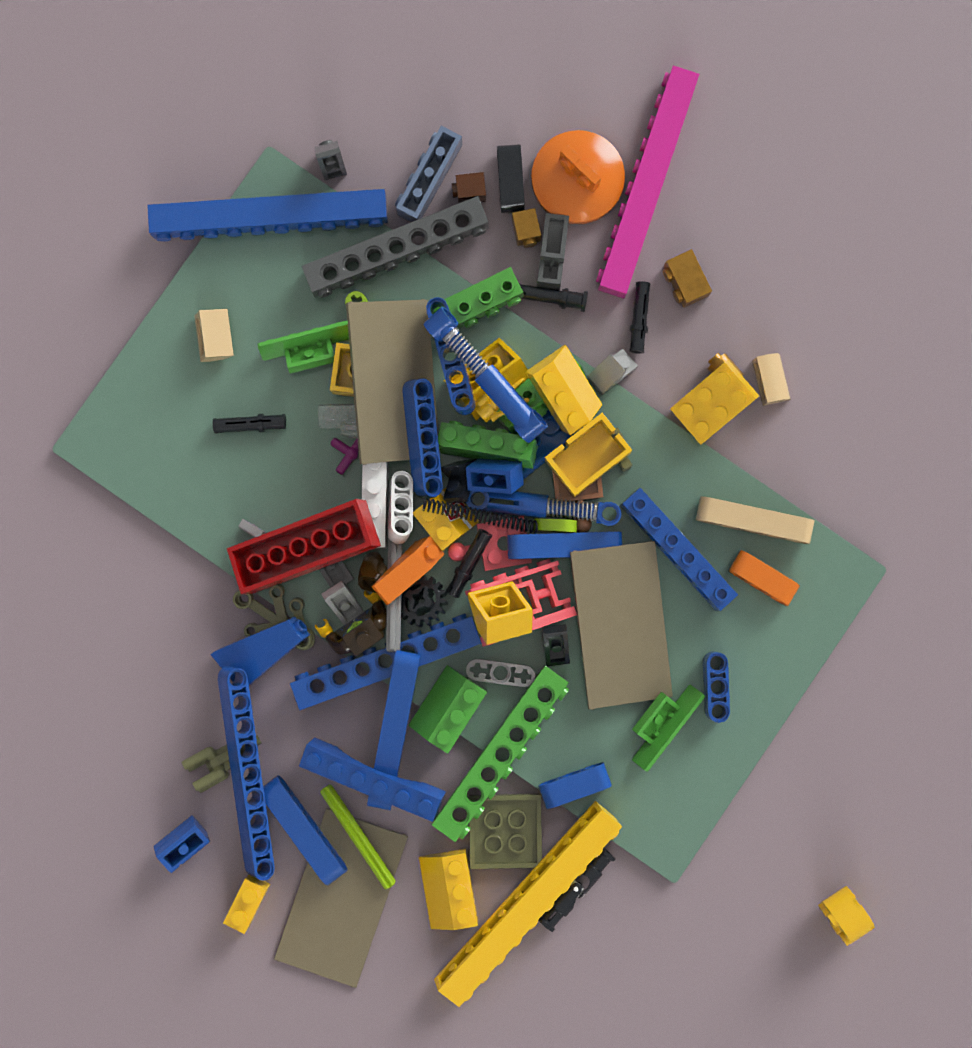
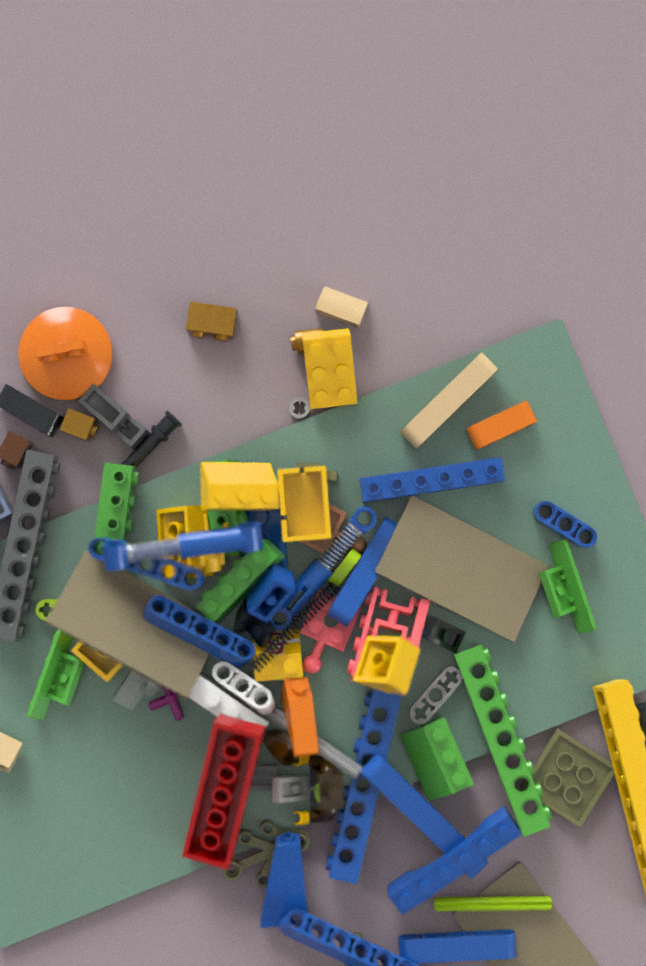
camera: 50 degrees left, 0 degrees up
(249, 423) = (89, 766): black pin -> none
(250, 528) = (178, 824): light grey tile -> none
(417, 609) = (339, 732): black gear -> none
(448, 890) = (586, 856): yellow slope -> none
(464, 571) = (332, 669): black pin -> none
(575, 785) = (569, 695): blue beam -> none
(611, 371) = (247, 434): light grey slope -> none
(638, 328) = (221, 384): black pin -> none
(648, 182) = (109, 298): dark pink brick -> none
(667, 406) = (306, 408): none -> light grey bush

